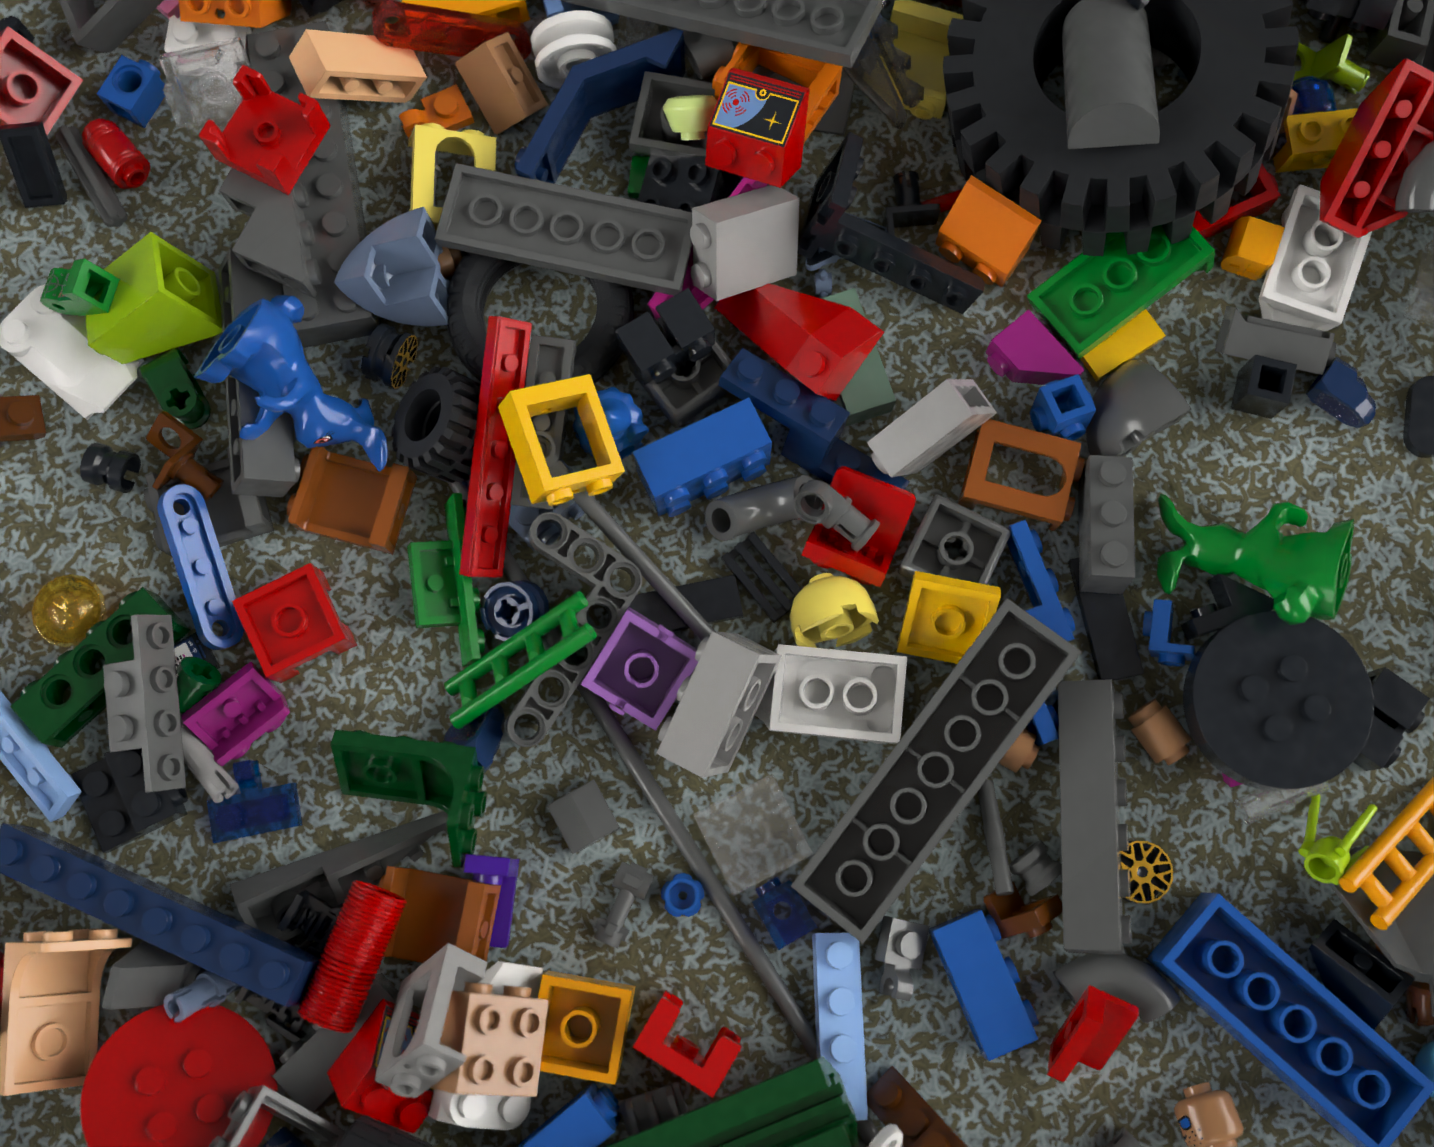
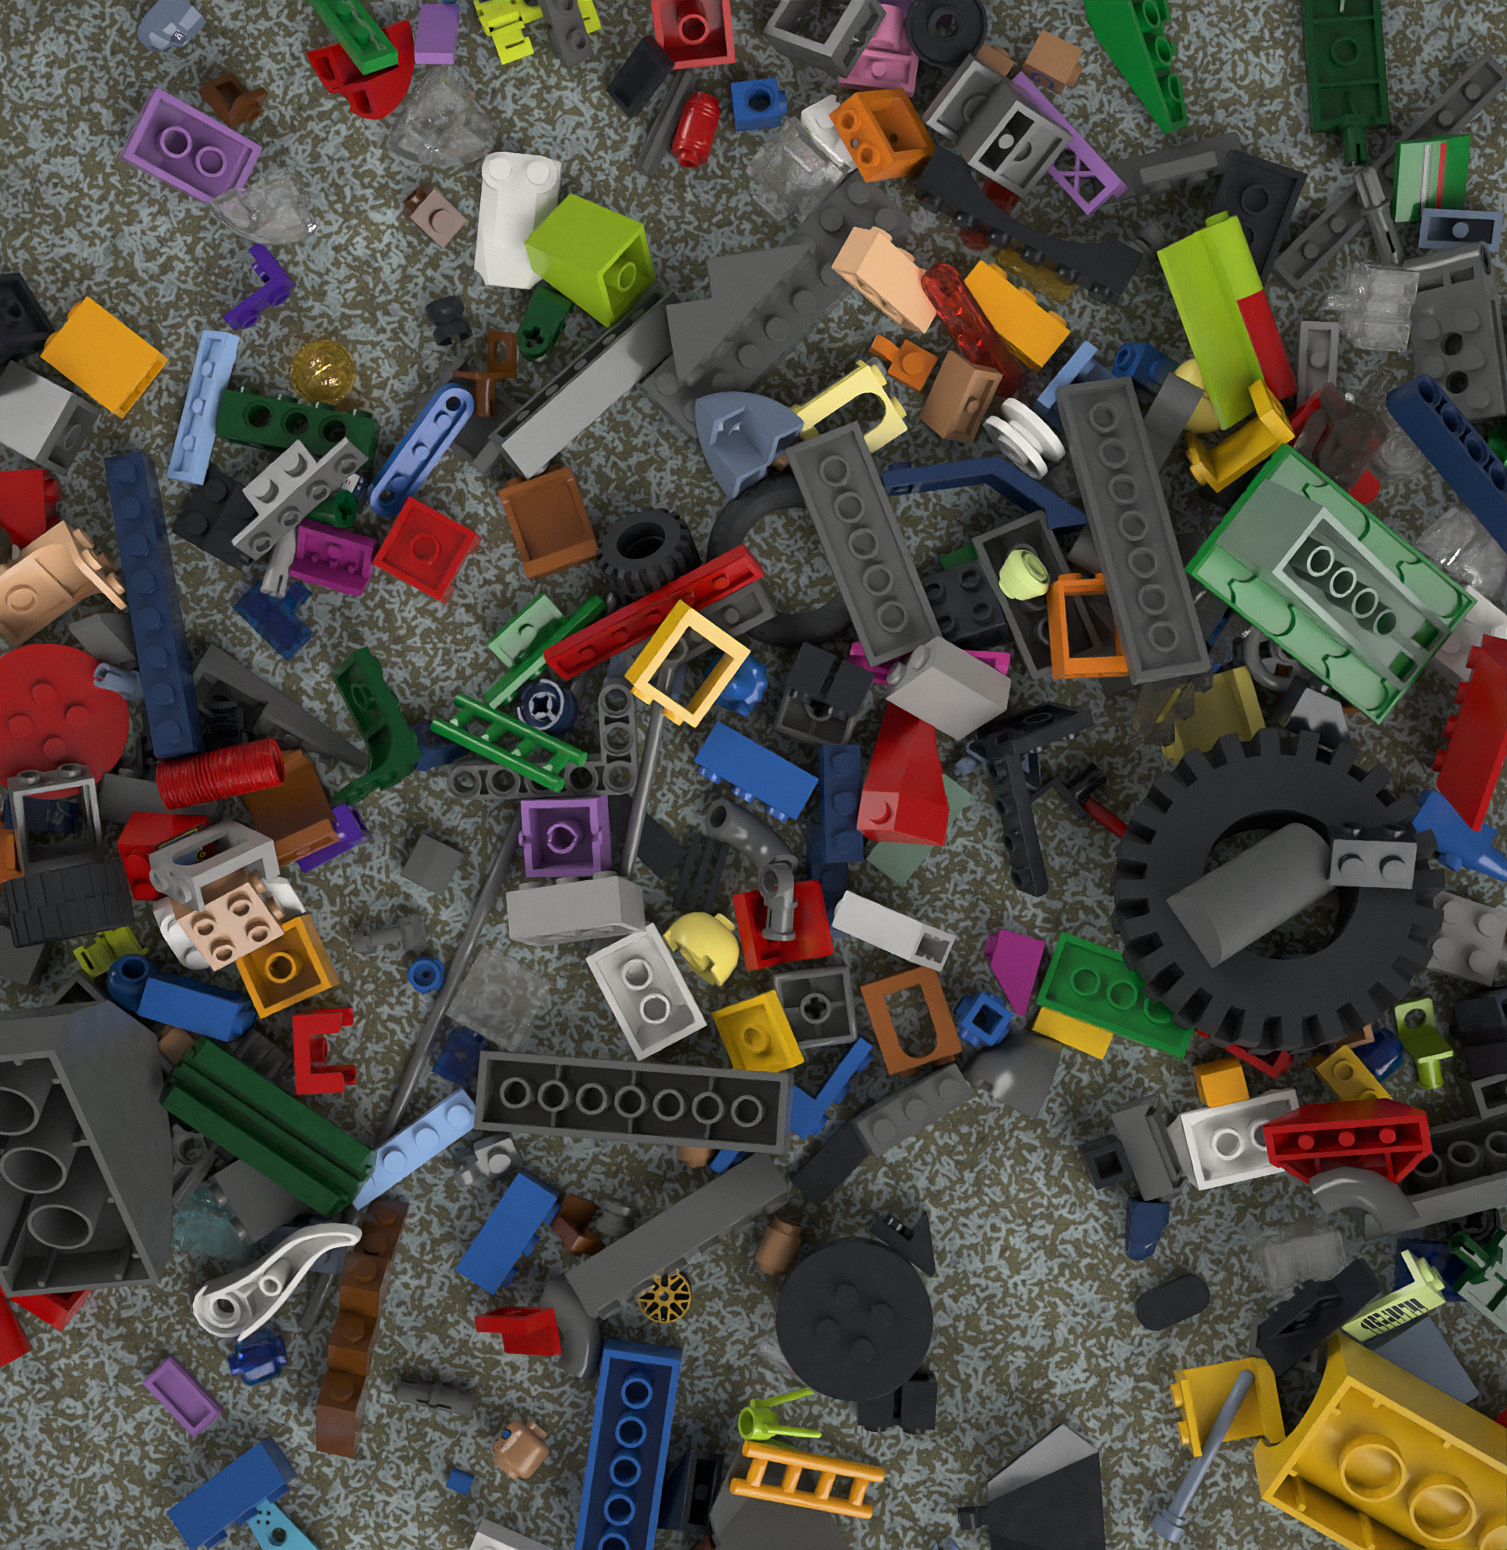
camera: 55 degrees right, 10 degrees up
(74, 289) = (560, 198): green leg -> none
(267, 133) = (773, 267): red panel -> none
(269, 357) = (604, 392): blue animal -> none
(389, 355) = (677, 471): black wheel -> none
(758, 128) = (1037, 642): slope -> none
(987, 232) = (1086, 869): orange slope -> none
(995, 839) = (617, 1175): dark grey piece -> none
(1158, 626) = (859, 1197): blue bracket -> none
(1299, 571) = (958, 1276): green animal -> none

